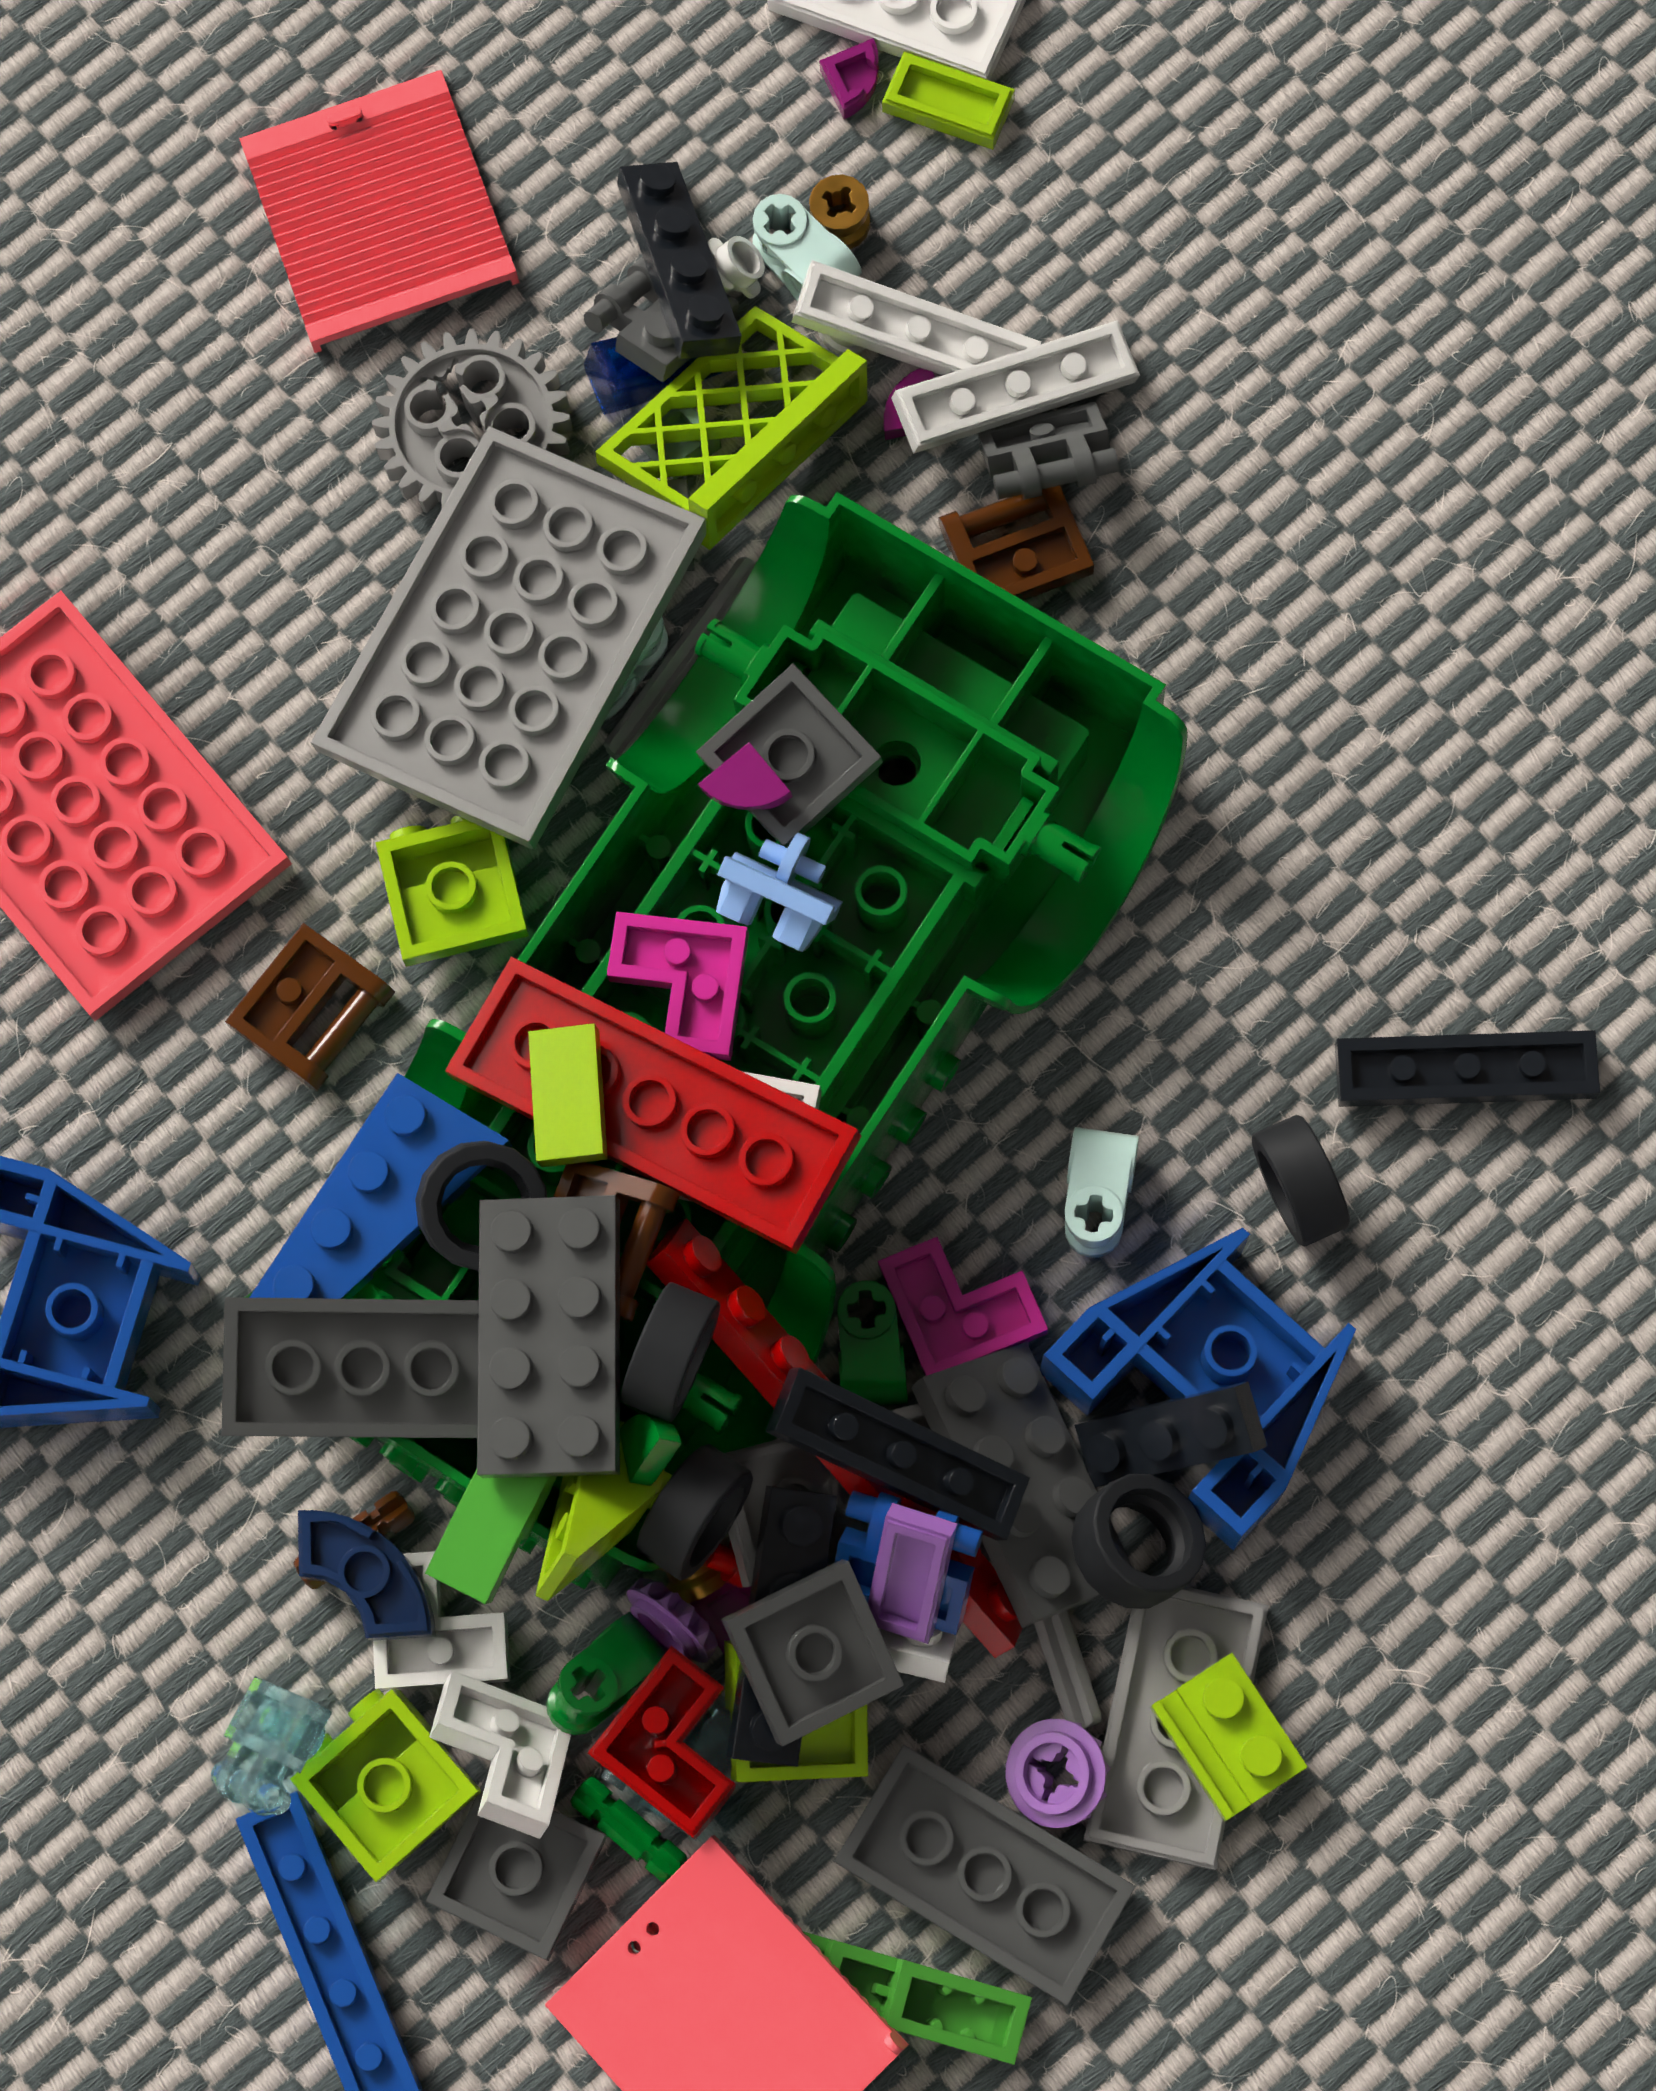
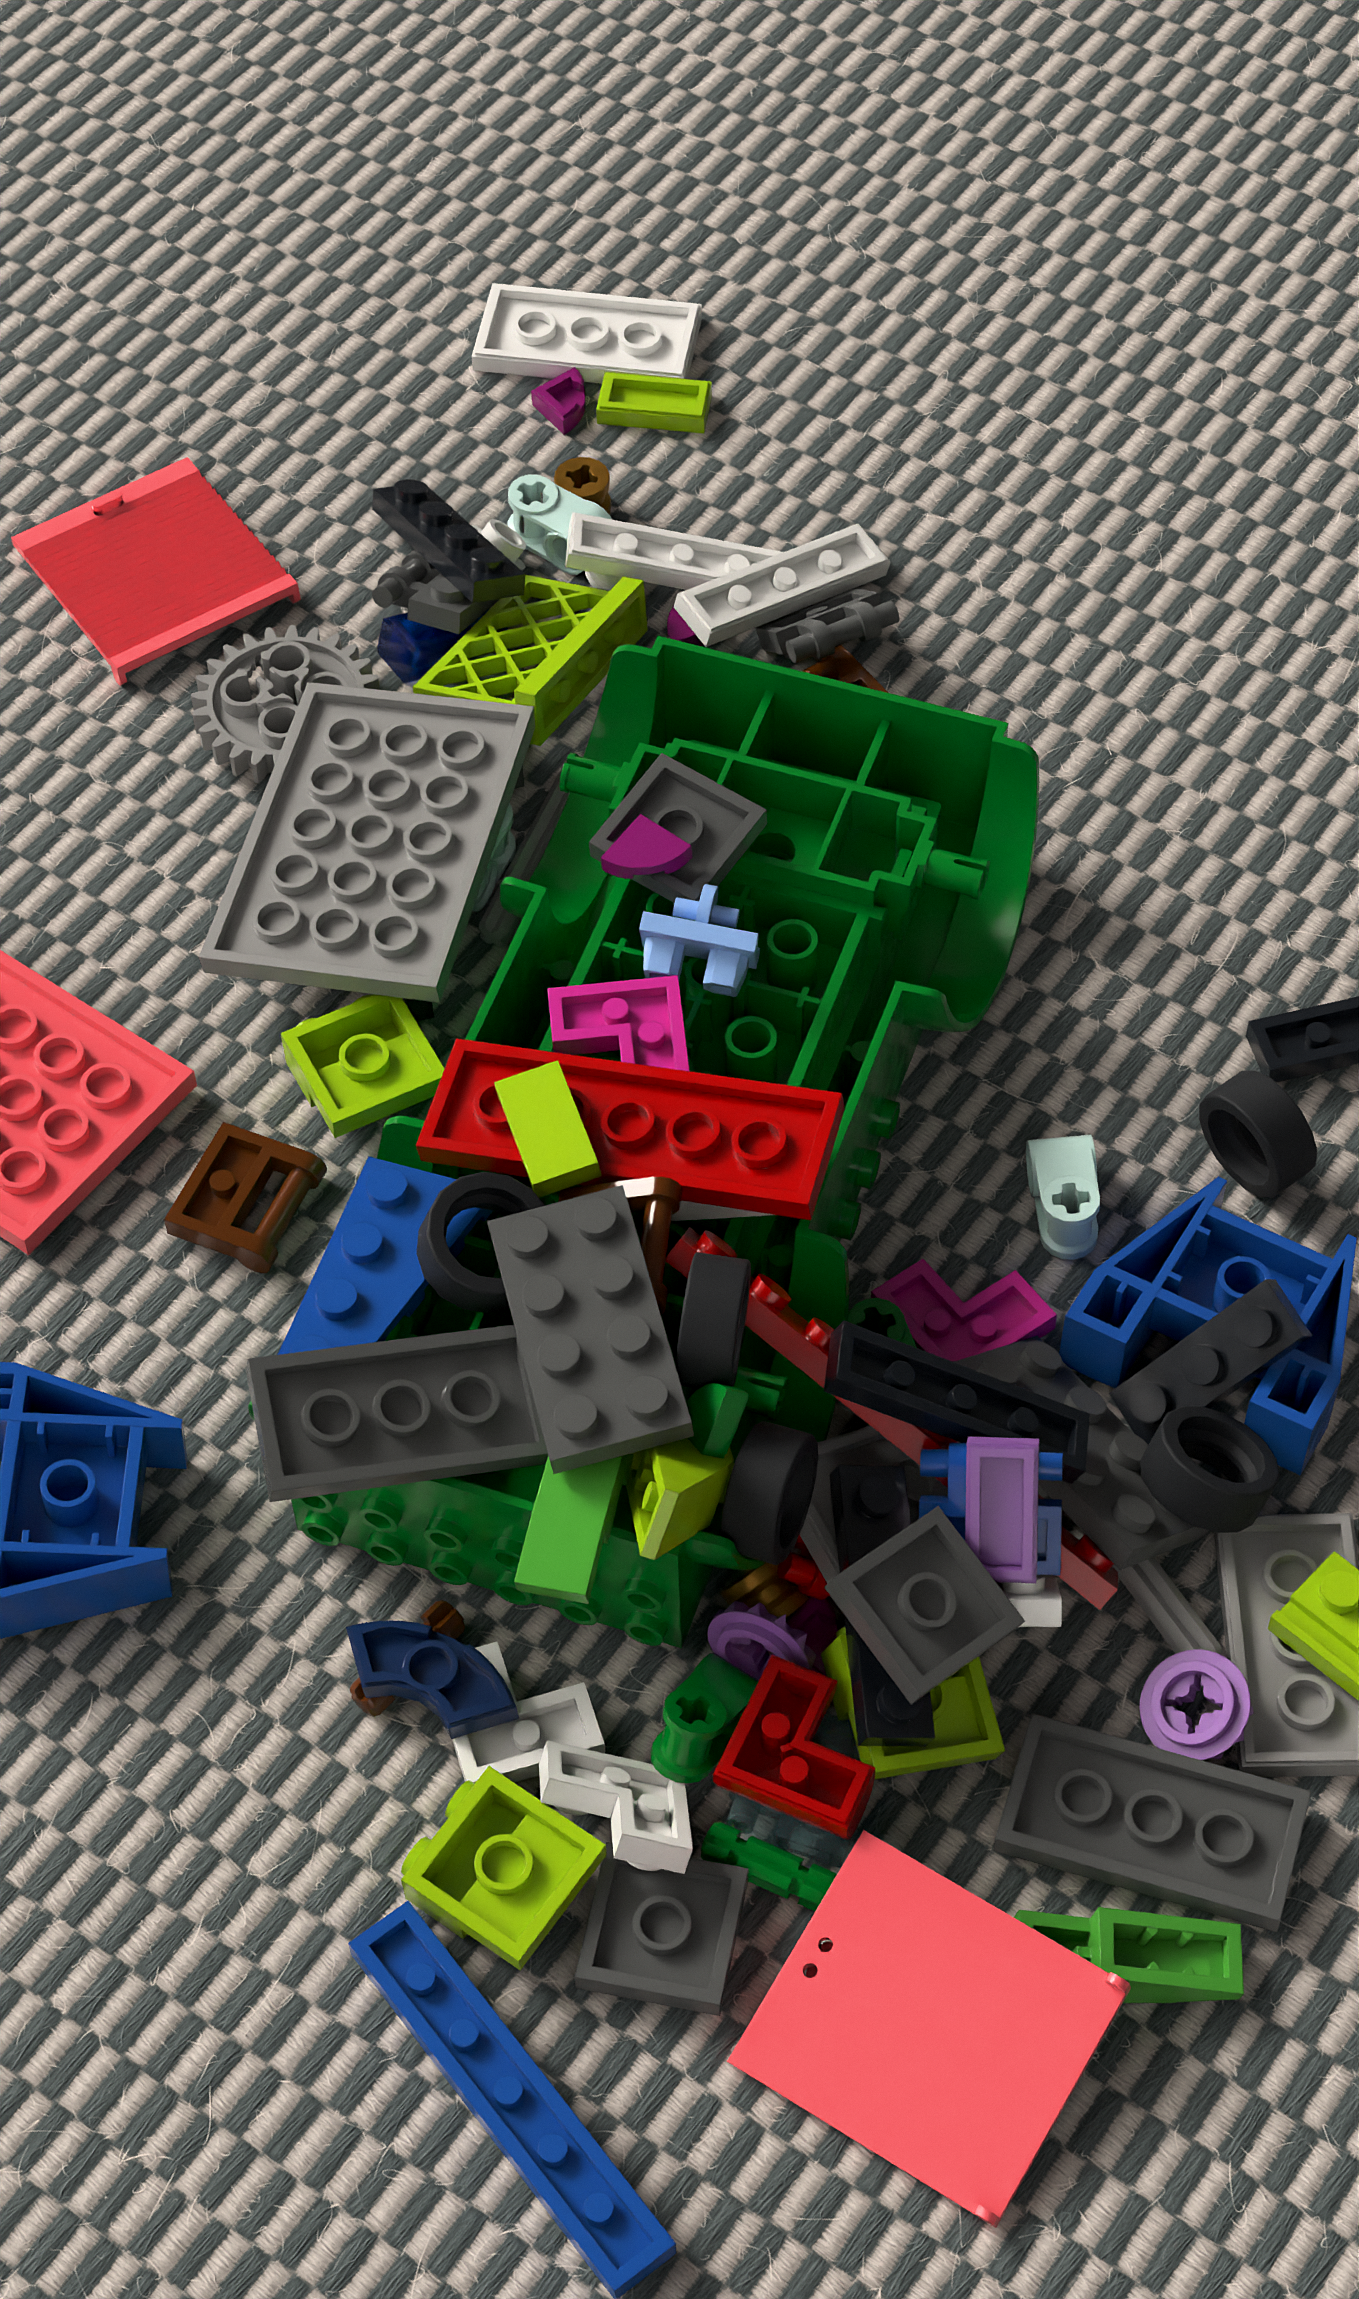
camera: 20 degrees left, 20 degrees down
(269, 1736) = (364, 1853): clear light blue plate -> none

